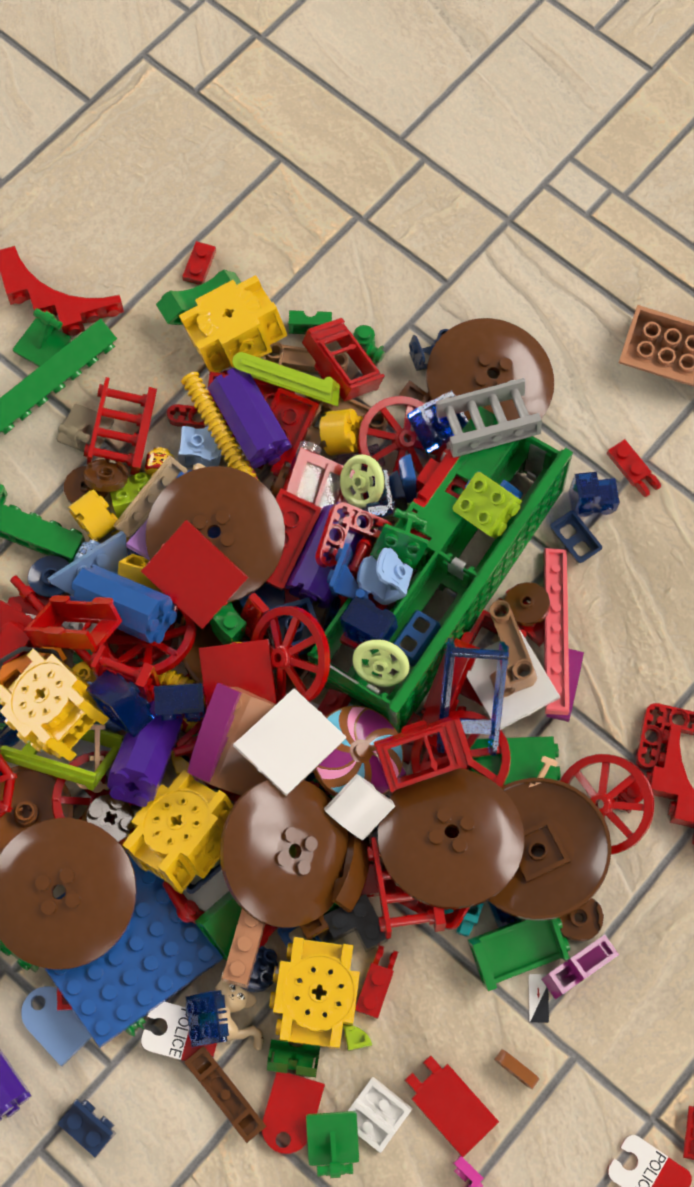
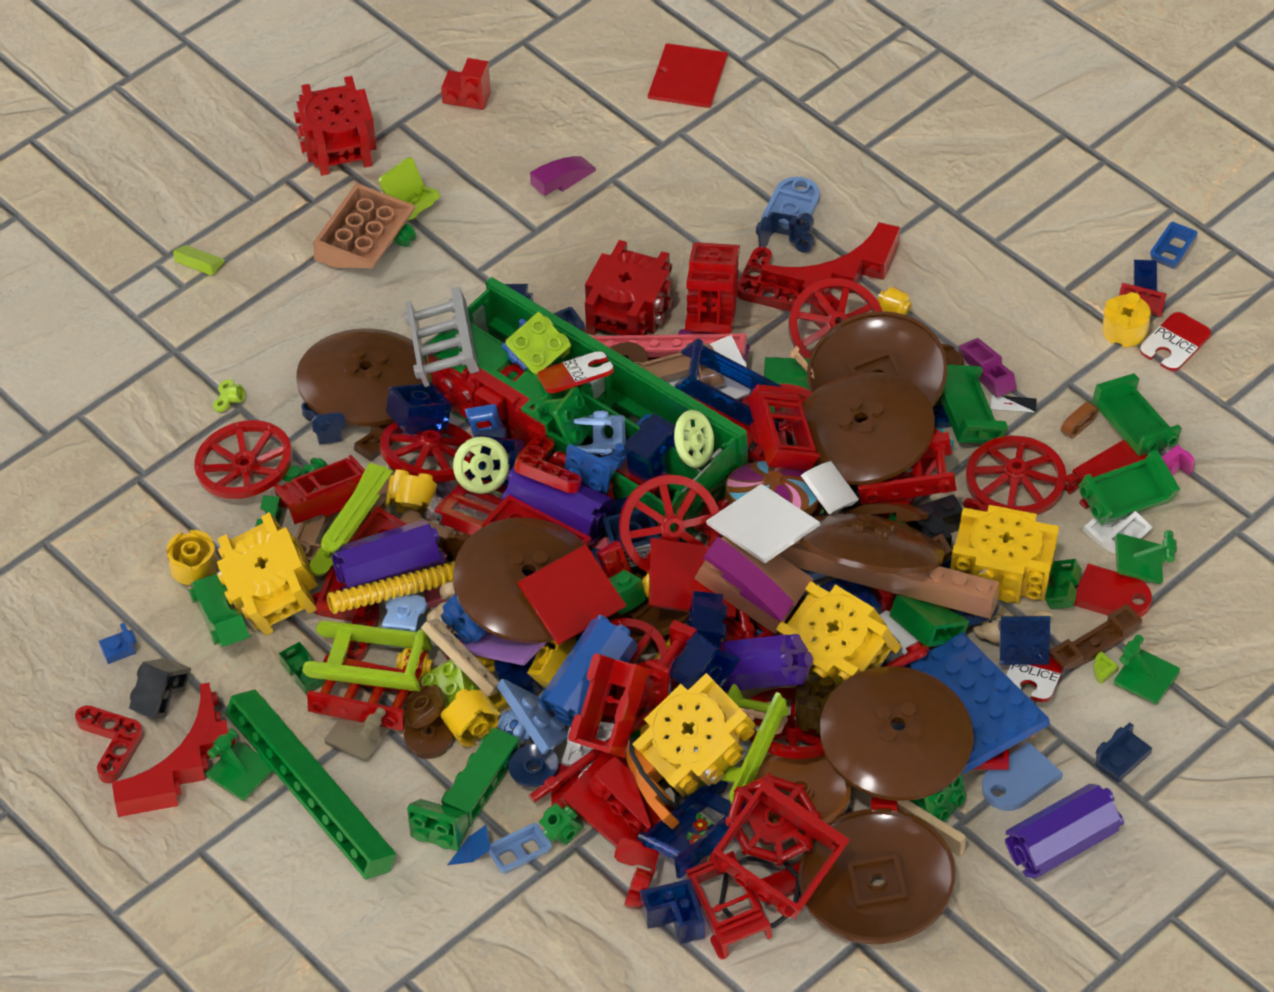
camera: 80 degrees left, 20 degrees down
(72, 249) = (117, 734): none -> red beam
(119, 262) = (155, 686): none -> black brick
(152, 376) = (294, 663): none -> green piece
(155, 397) = (344, 633): none -> lime piece
(169, 230) = (119, 645): none -> blue bracket
(186, 1150) = (1144, 672): none -> green plate
(196, 1105) = (1104, 667): none -> lime tile
(199, 263) = (166, 621): red plate -> none
(263, 262) = (191, 556): none -> yellow brick
(375, 292) = (245, 462): none -> red wheel
(419, 1123) = (1129, 489): none -> green panel
(450, 537) = (574, 372): none -> piece
(457, 271) = (233, 393): none -> lime piece
(470, 974) = (1016, 473): none -> red wheel
(525, 1131) = (1133, 415): none -> green panel
(619, 220) = (198, 259): none -> lime slope
(620, 597) = (628, 292): none -> red piece
(623, 672) = (712, 288): none -> red piece
(633, 467) = (475, 282): red hinge -> none
(652, 863) = (894, 301): none -> yellow head
(674, 387) = (405, 236): none -> green wheel
(677, 1120) = (1126, 320): none -> yellow brick

